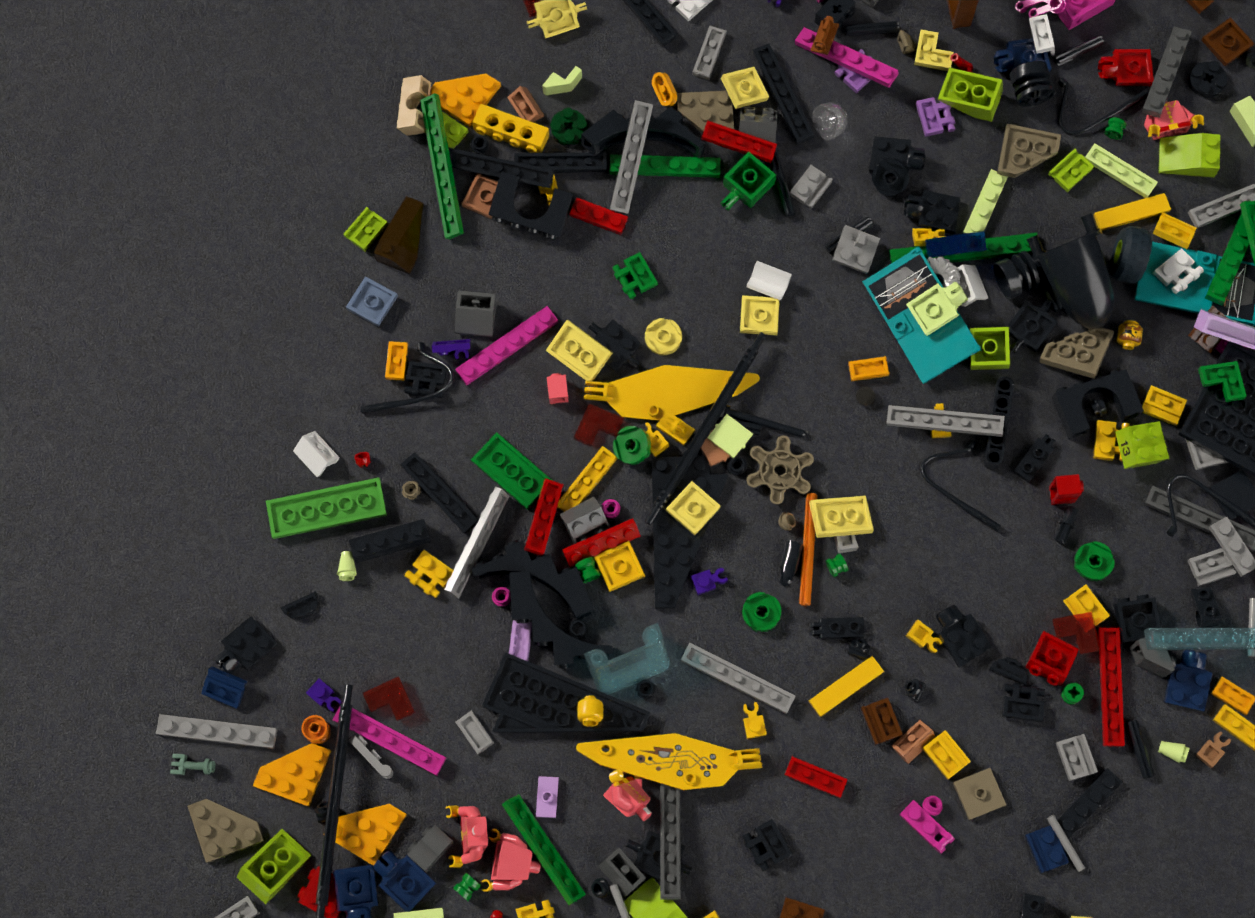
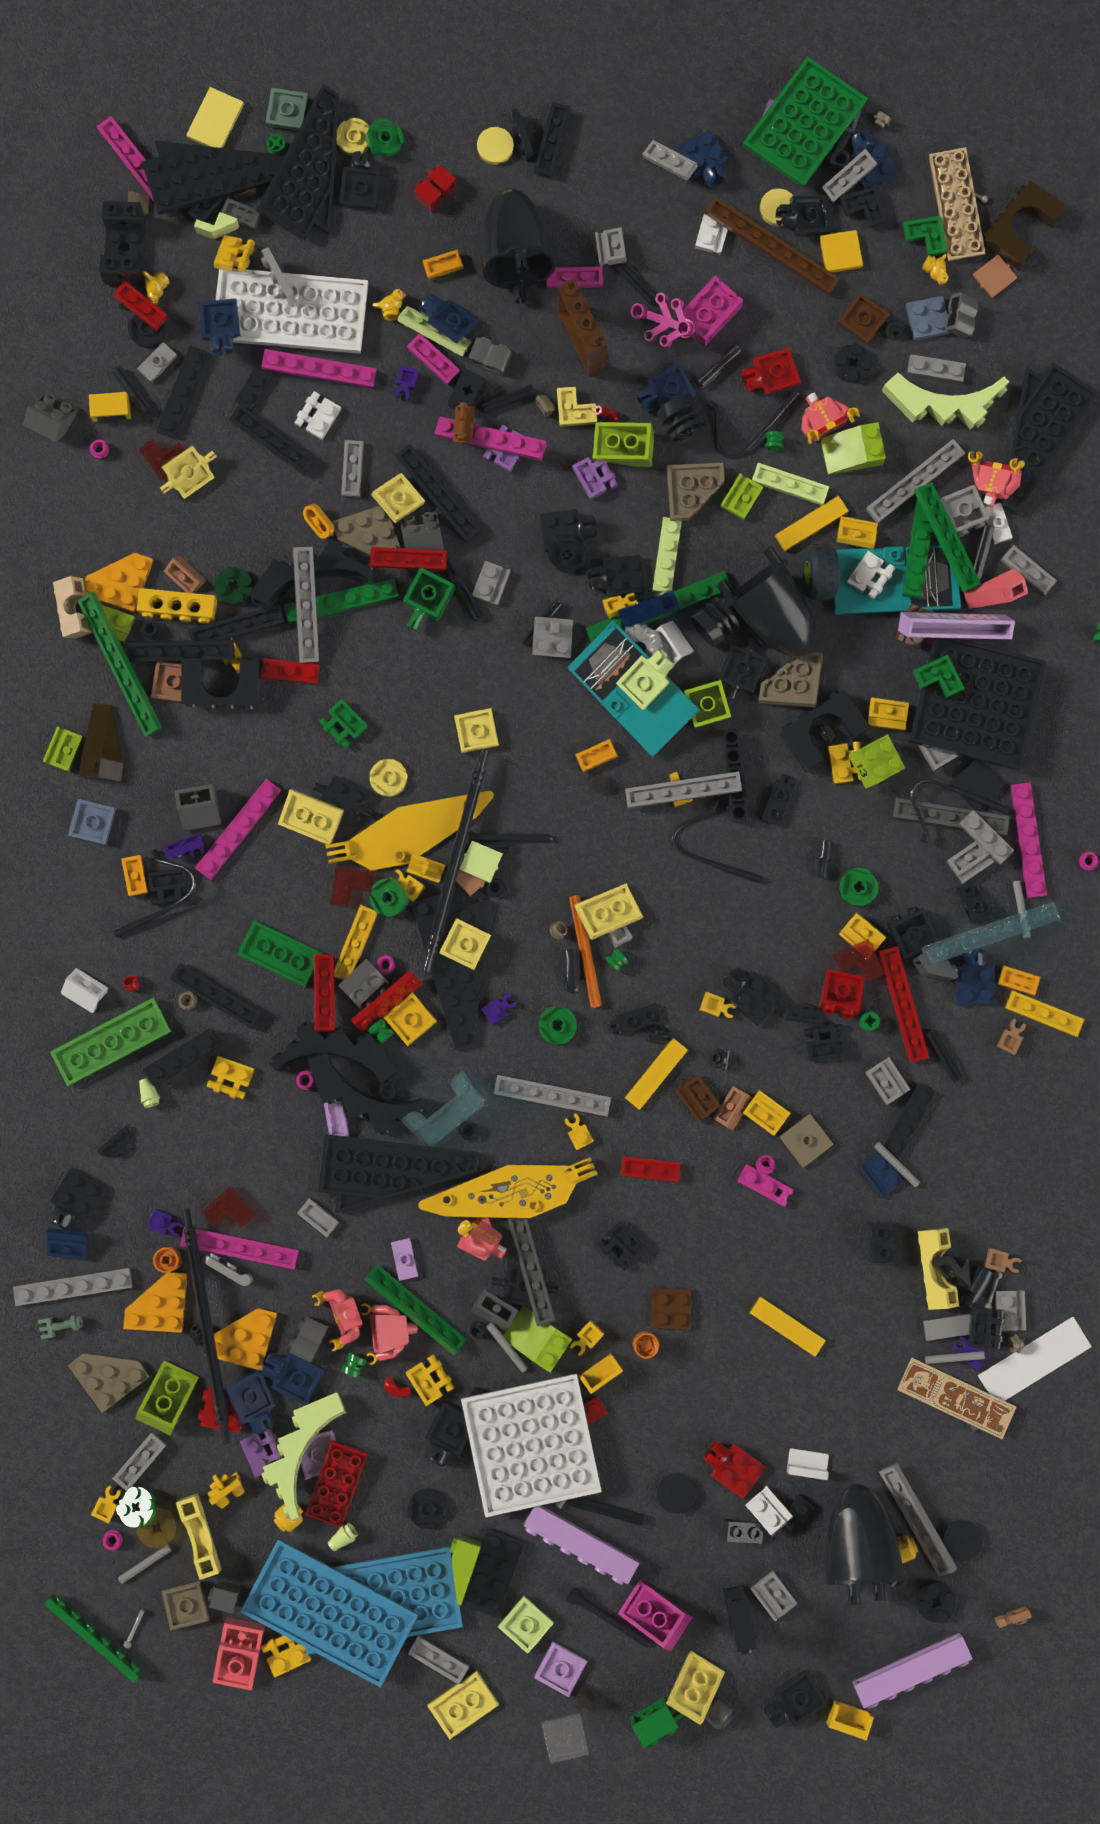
camera: 20 degrees left, 10 degrees up
(477, 542) = (267, 1033): light grey plate -> none
(556, 84) = (209, 545): yellowish green slope -> none
(557, 388) = (300, 860): coral brick -> none
(590, 711) = (422, 1169): yellow head -> none
(769, 280) = (476, 693): white panel -> none
(782, 457) = (538, 868): dark tan plate -> none
(830, 119) = (492, 509): clear cylinder -> none
(1042, 34) = (678, 361): white panel -> none
(1066, 489) = (815, 825): red piece -> none
(1129, 334) = (839, 651): yellow head -> none
(1166, 72) = (810, 368): dark grey plate -> none
(1175, 751) = (976, 1049): yellowish green cone -> none

